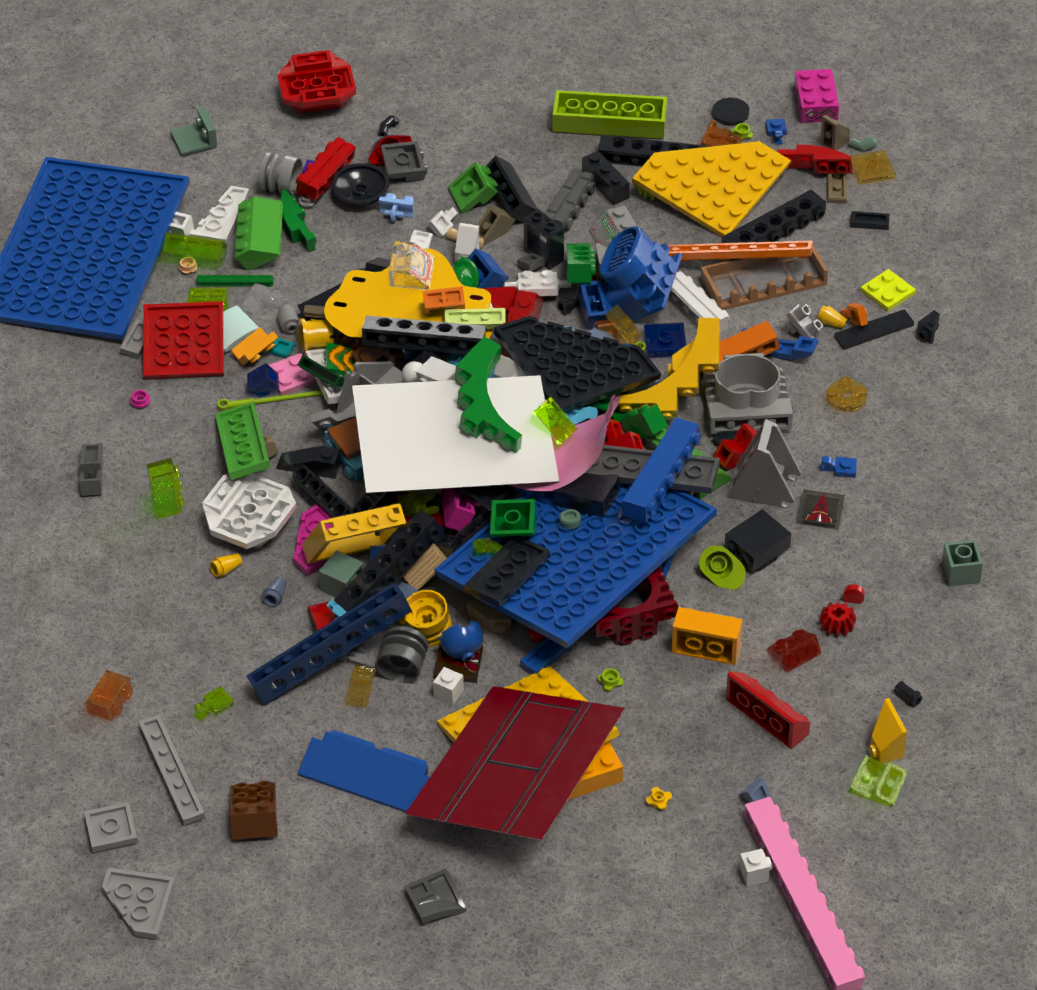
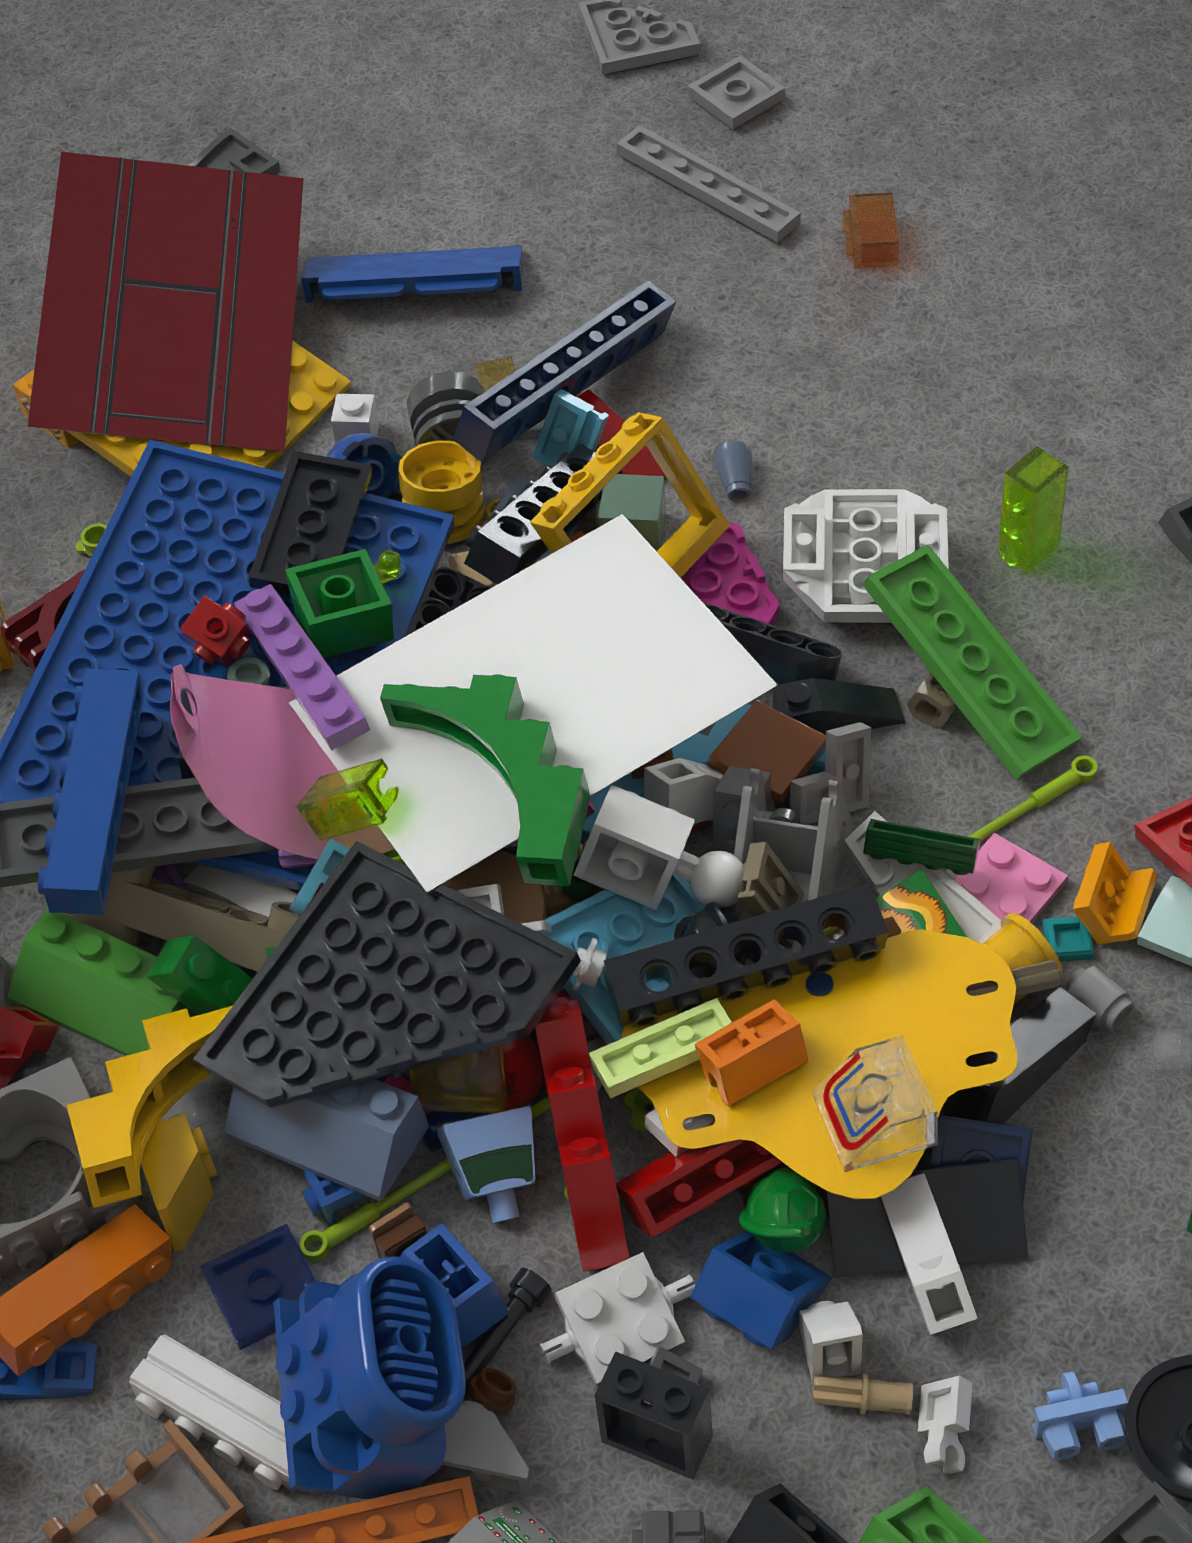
camera: 160 degrees right, 5 degrees up
(215, 701) = (709, 285): clear neon green plate -> none
(225, 564) = (853, 472): yellow cone -> none
(253, 810) = (551, 173): reddish brown slope -> none
(262, 380) = (1038, 823): clear blue brick -> none
(396, 368) = (767, 884): none -> dark tan plate
(494, 224) = (815, 1453): dark tan slope -> none
(546, 492) = (302, 667): none -> medium lavender plate
(577, 526) = (216, 632): none -> red brick
(580, 263) = (573, 1436): green brick -> none
(617, 438) = (219, 887): red brick -> none
(623, 324) = (351, 1231): clear yellow plate -> none

